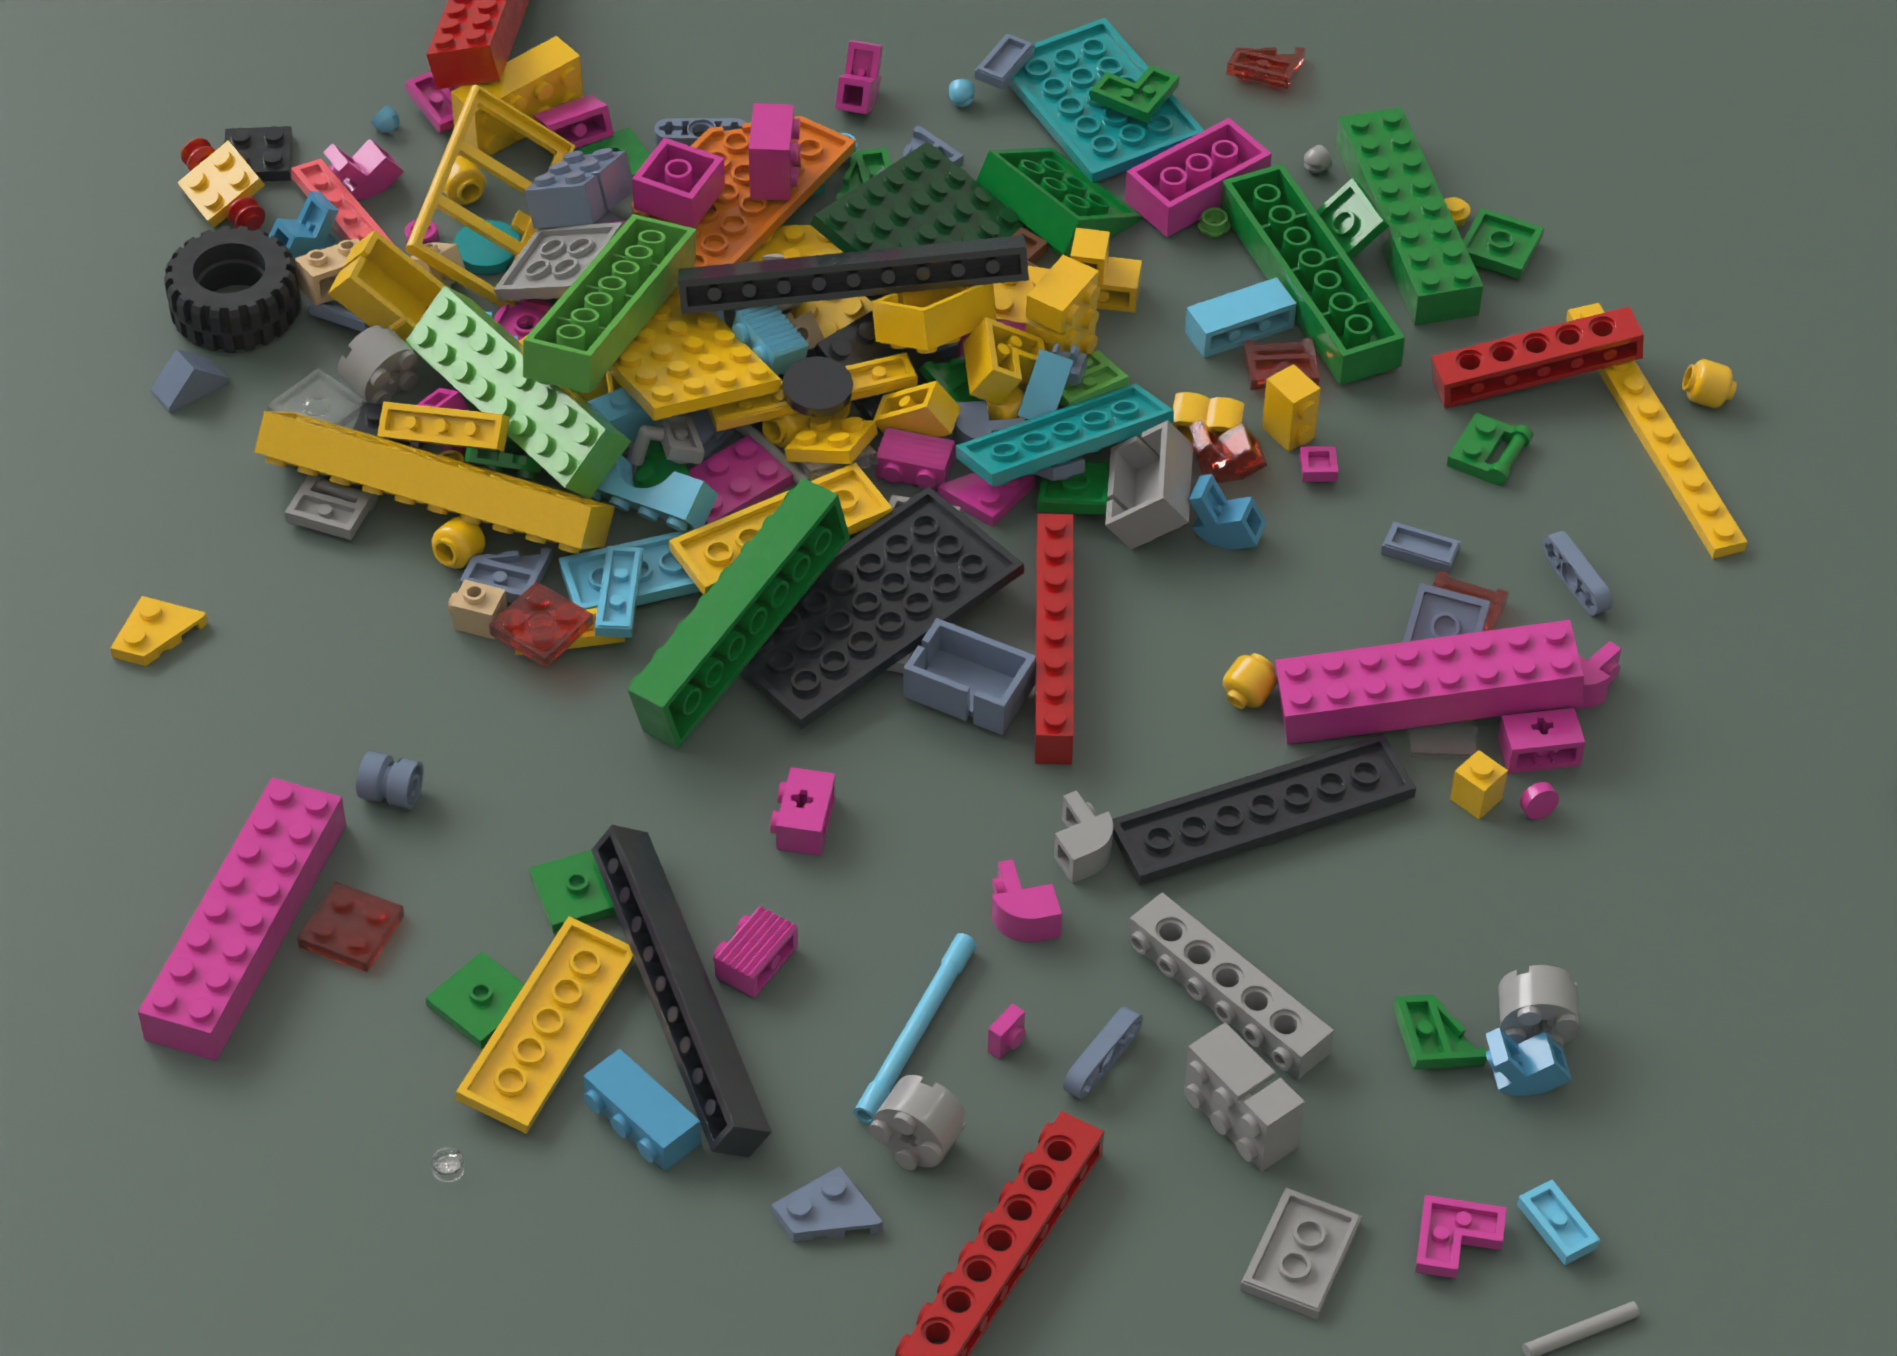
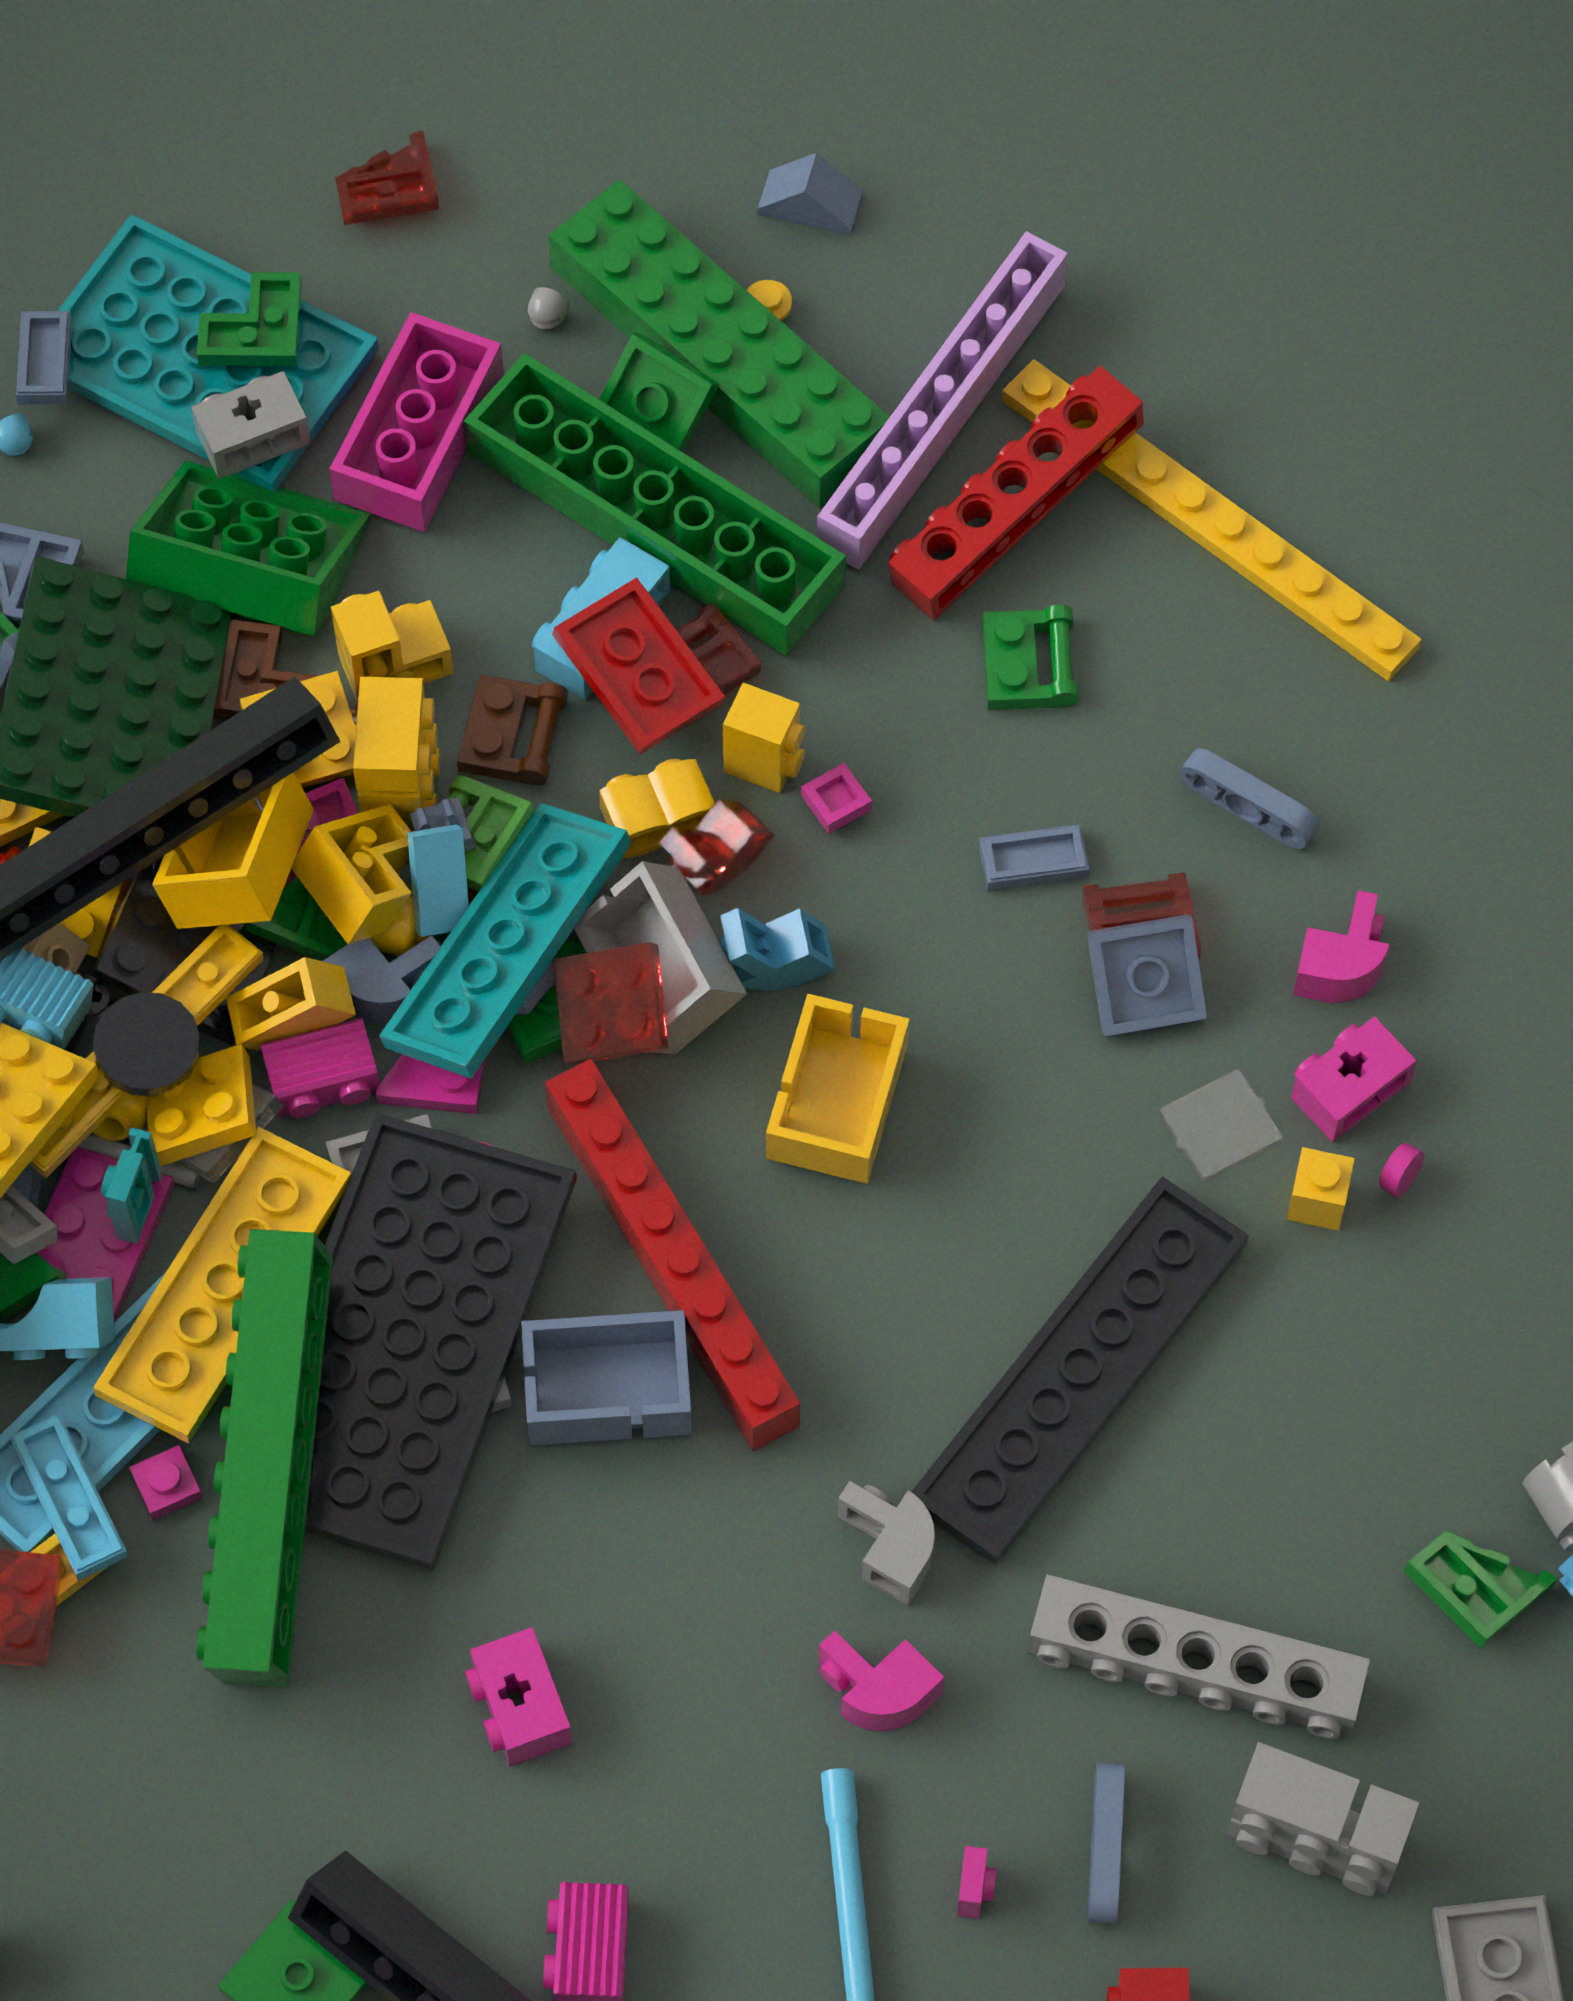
camera: 30 degrees left, 15 degrees up
(673, 613) = (165, 1482): none -> dark pink plate
(761, 452) = (129, 1186): none -> teal plate
(1097, 135) = (250, 424): none -> light grey brick
(1103, 489) = (611, 1003): none -> clear red plate
(1142, 344) = (496, 726): none -> reddish brown plate
(1212, 599) = (837, 1089): none -> yellow piece
(1214, 222) = (474, 469): bright green plate -> none
(1240, 338) = (638, 665): none -> red plate
(1249, 681) = (953, 1185): yellow head -> none
(1429, 682) = (1181, 1075): dark pink brick -> none
(1502, 242) = (860, 324): green plate -> none
(1520, 171) = (811, 194): none -> sand blue slope
(1524, 294) = (942, 399): none -> lavender brick
(1709, 383) = (1242, 419): yellow head -> none

